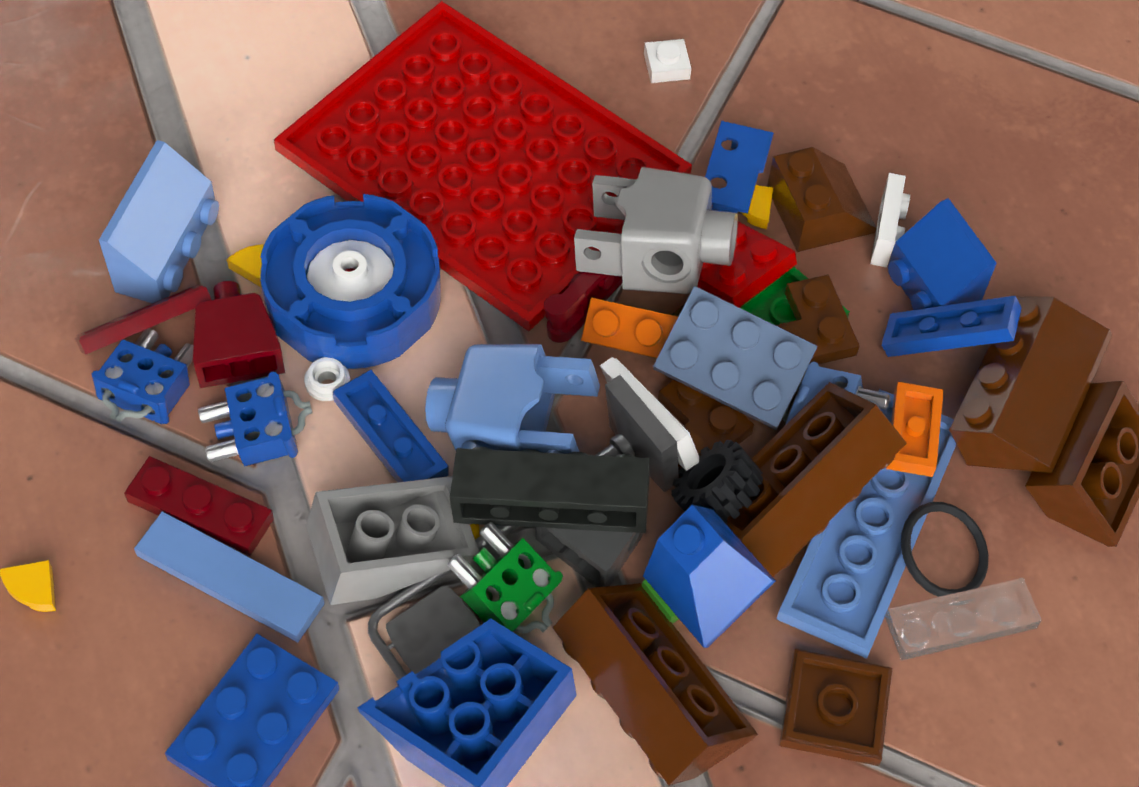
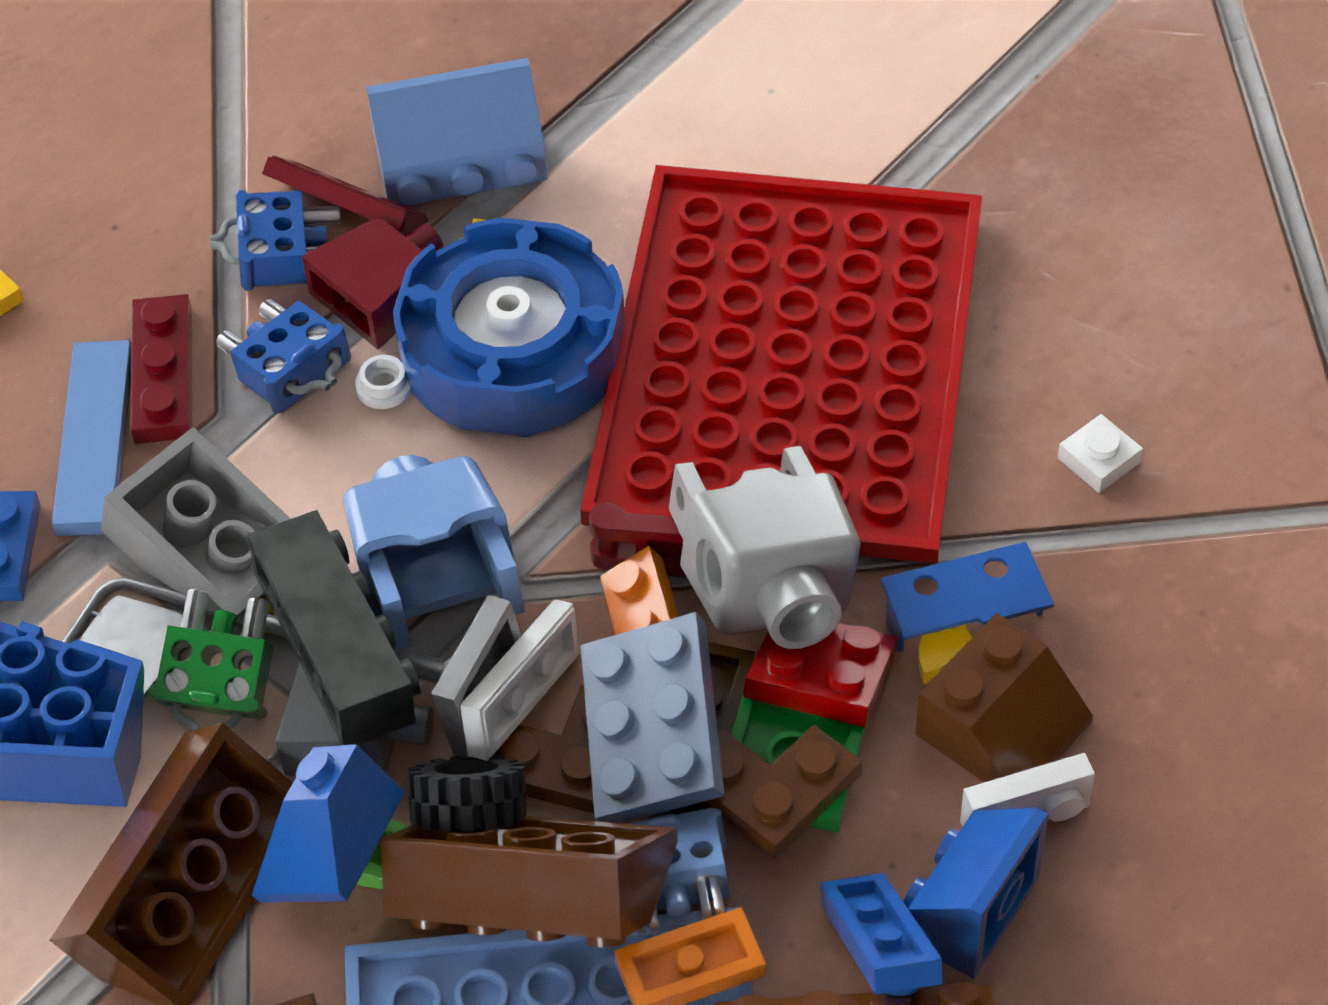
camera: 65 degrees right, 5 degrees down
(389, 430) = (360, 446): blue plate -> none

